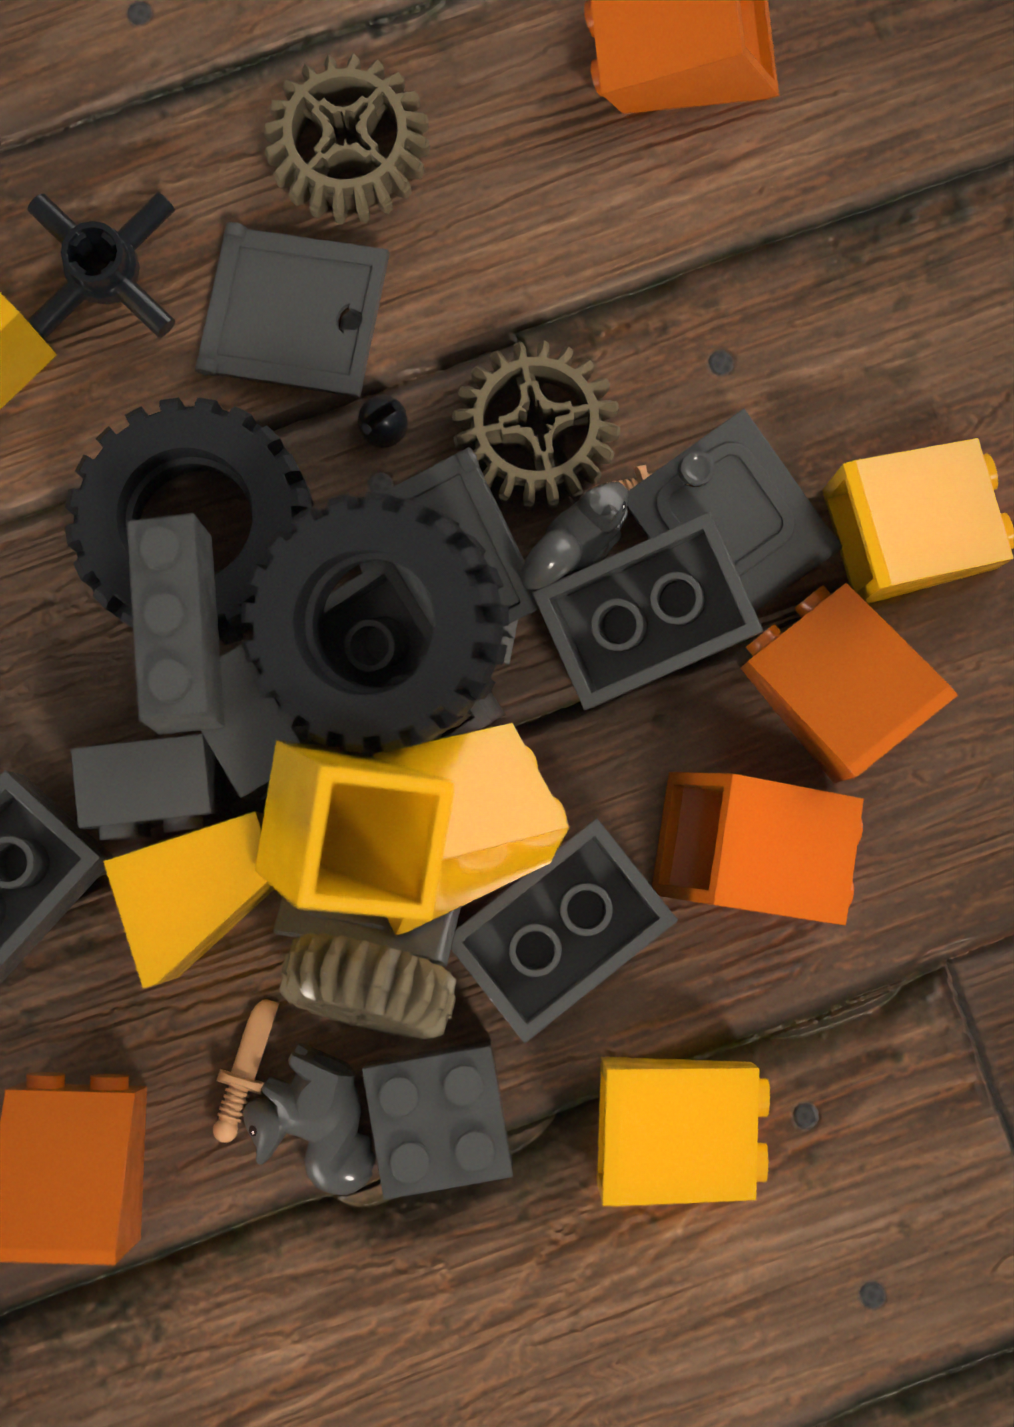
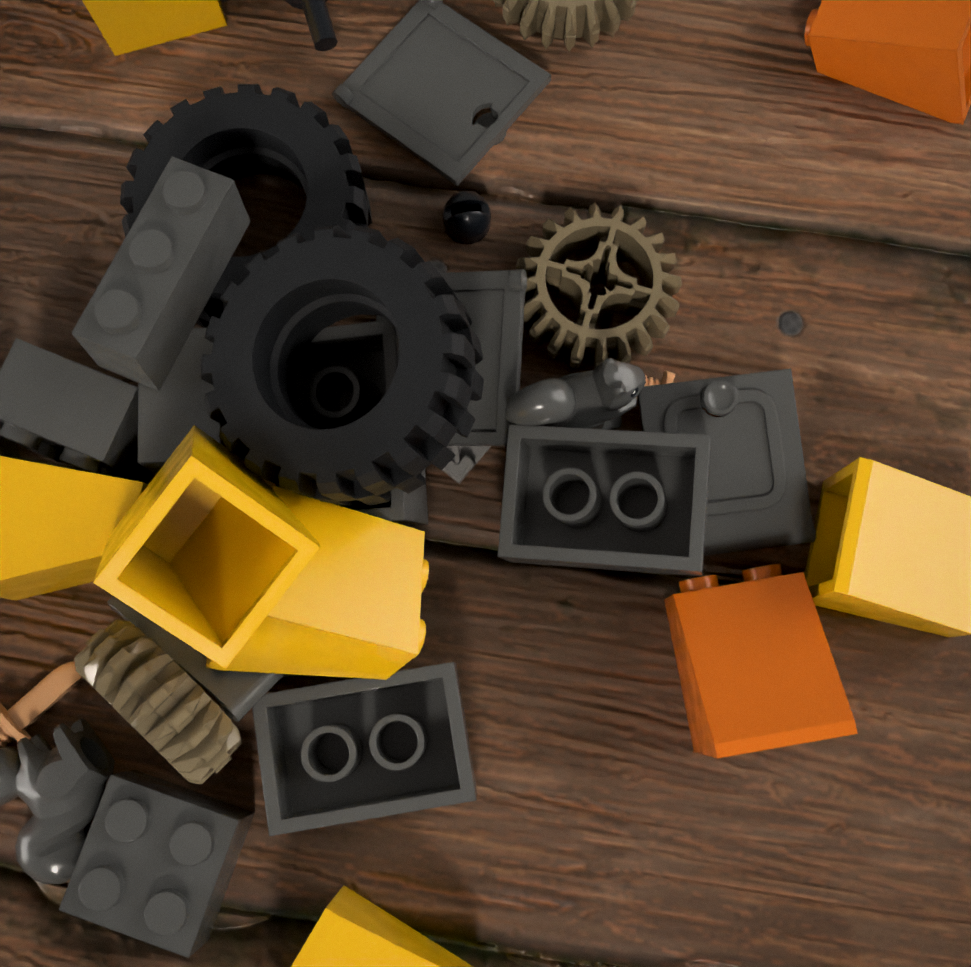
camera: 30 degrees right, 5 degrees down
(758, 846) = (592, 774): orange slope -> none

